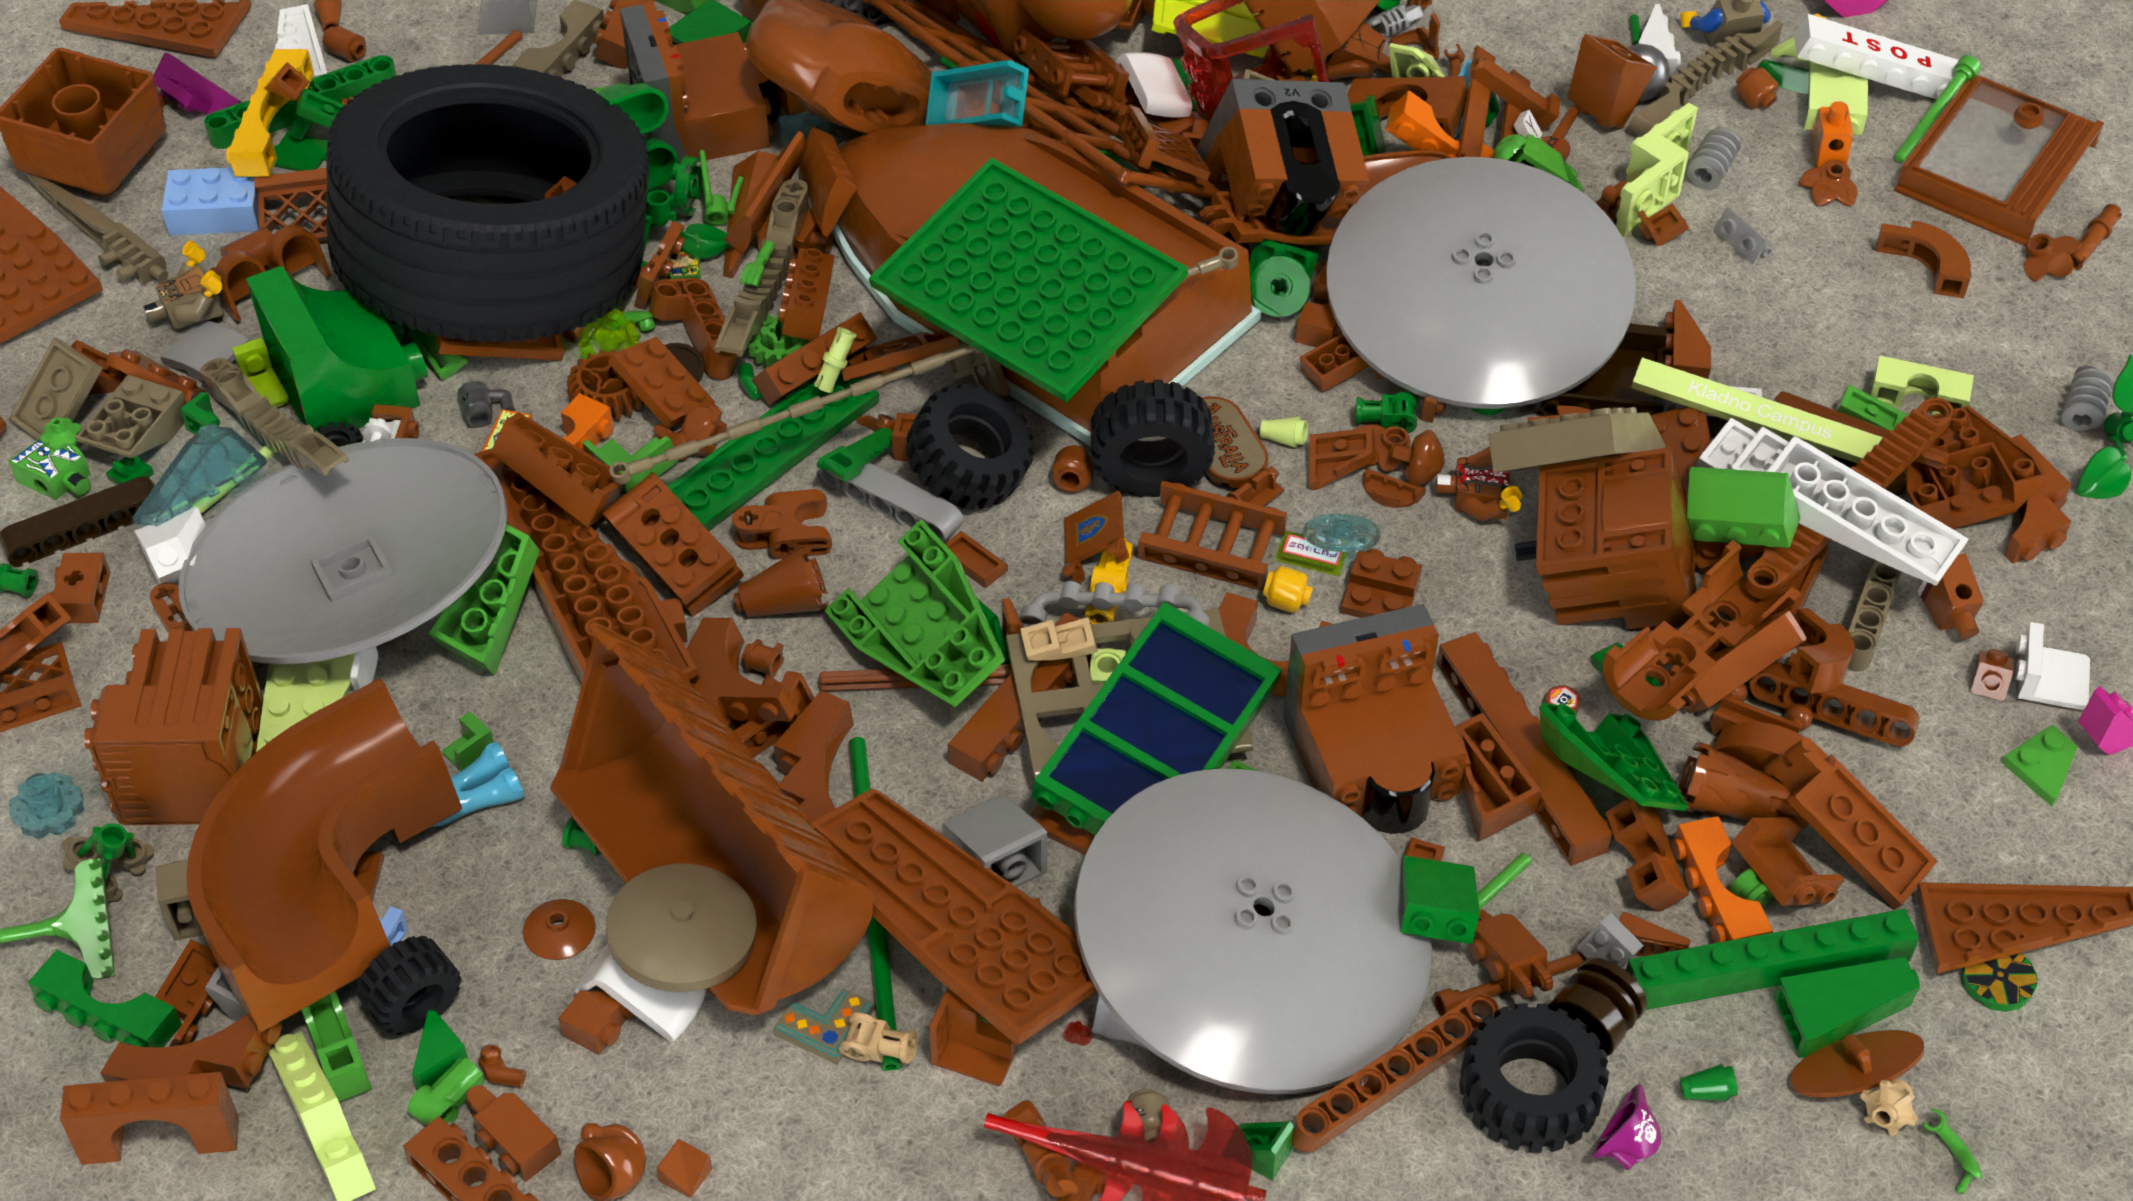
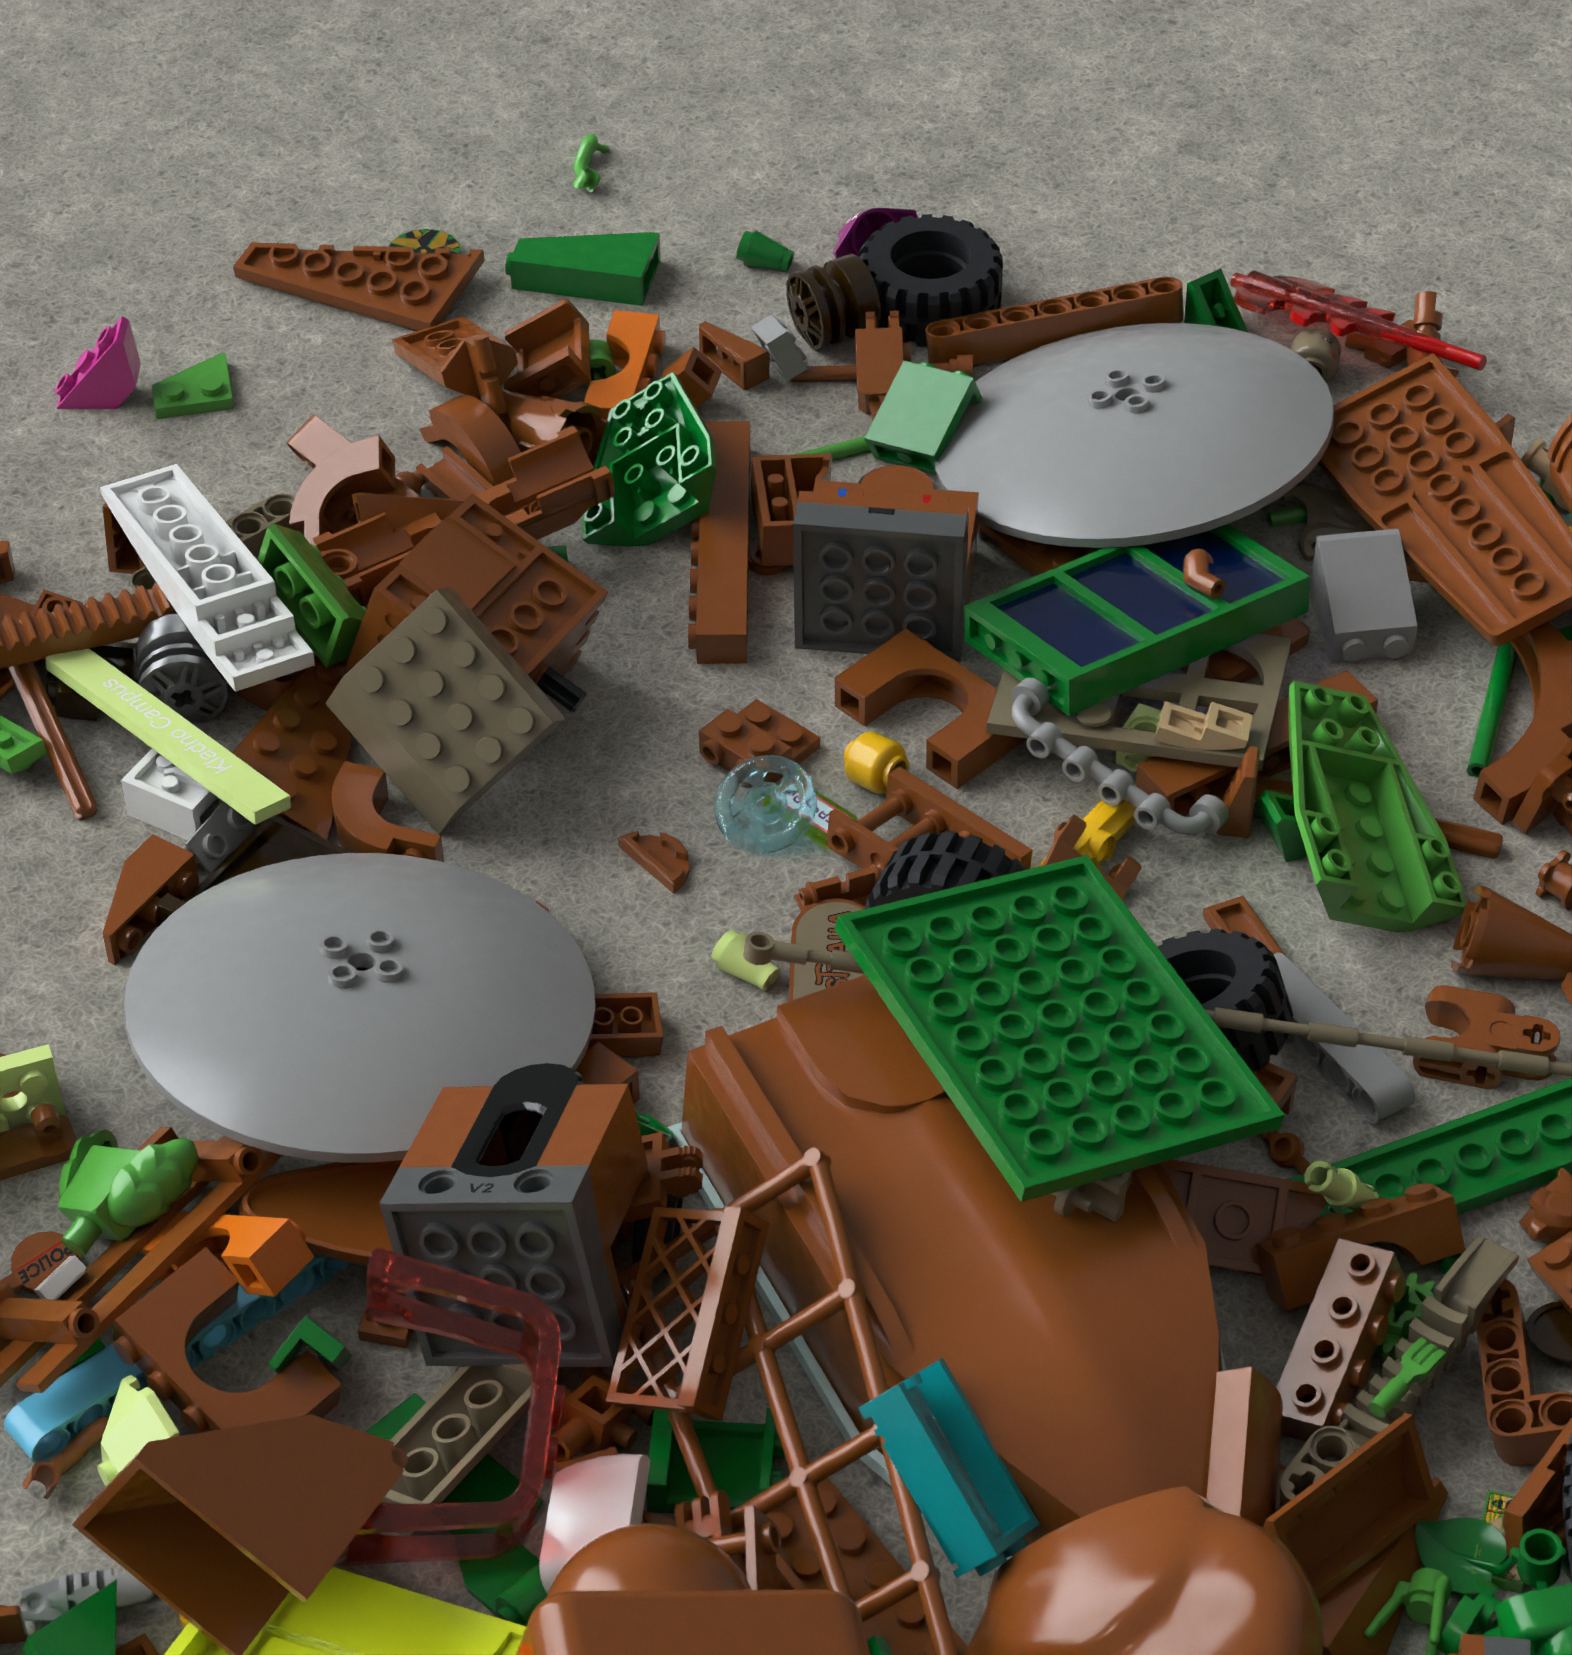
camera: 155 degrees left, 5 degrees down
(850, 460) = (1346, 1079): green piece -> none
(1118, 738) = (1197, 574): none -> dark orange arm
(1338, 454) = (698, 902): dark orange wing -> none
(1383, 443) = (632, 909): dark orange plate -> none
(1388, 411) = (599, 942): green connector -> none
(1422, 37) = (55, 1557): dark orange piece -> none
(1423, 458) = (603, 856): dark orange piece -> none
(1480, 490) = (547, 807): torso -> none
(1564, 695) = (640, 579): tile -> none
(1765, 958) = (522, 291): green brick -> none
(1857, 1063) = (620, 215): dark orange shield -> none
(1890, 1105) = (619, 190): tan rock -> none
(1993, 674) = (158, 456): bracket -> none
(2050, 673) = (107, 447): white bracket -> none

